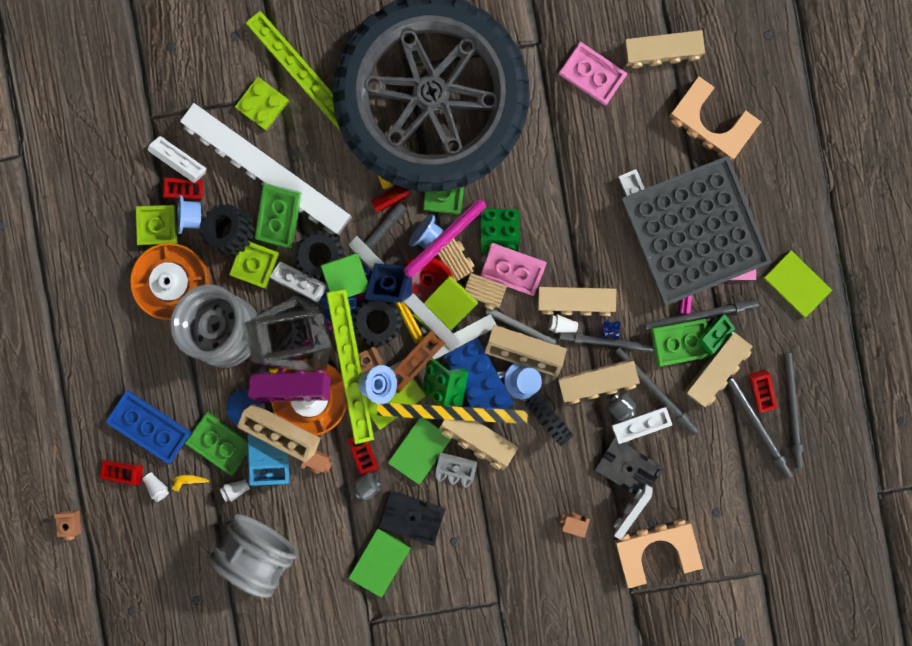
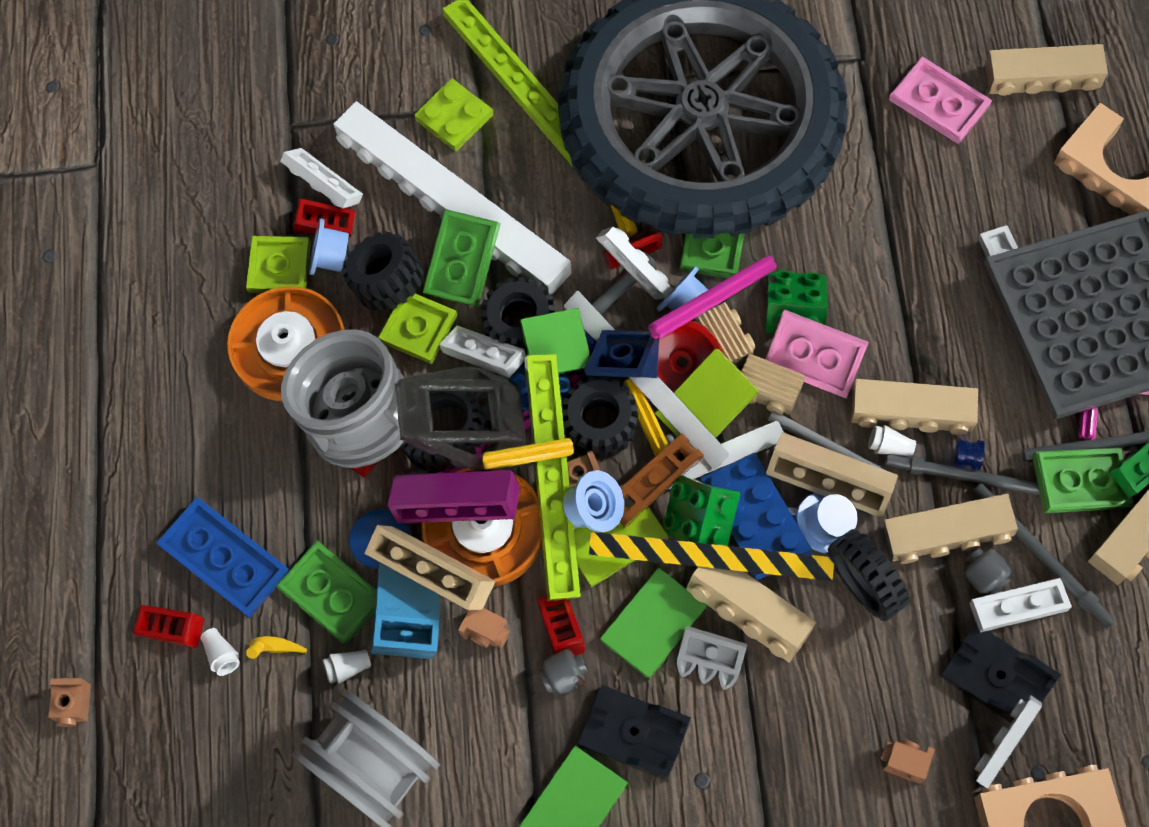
camera: 10 degrees right, 20 degrees down
(333, 358) = (527, 454): none -> yellow axle
(393, 214) = (635, 262): none -> white plate

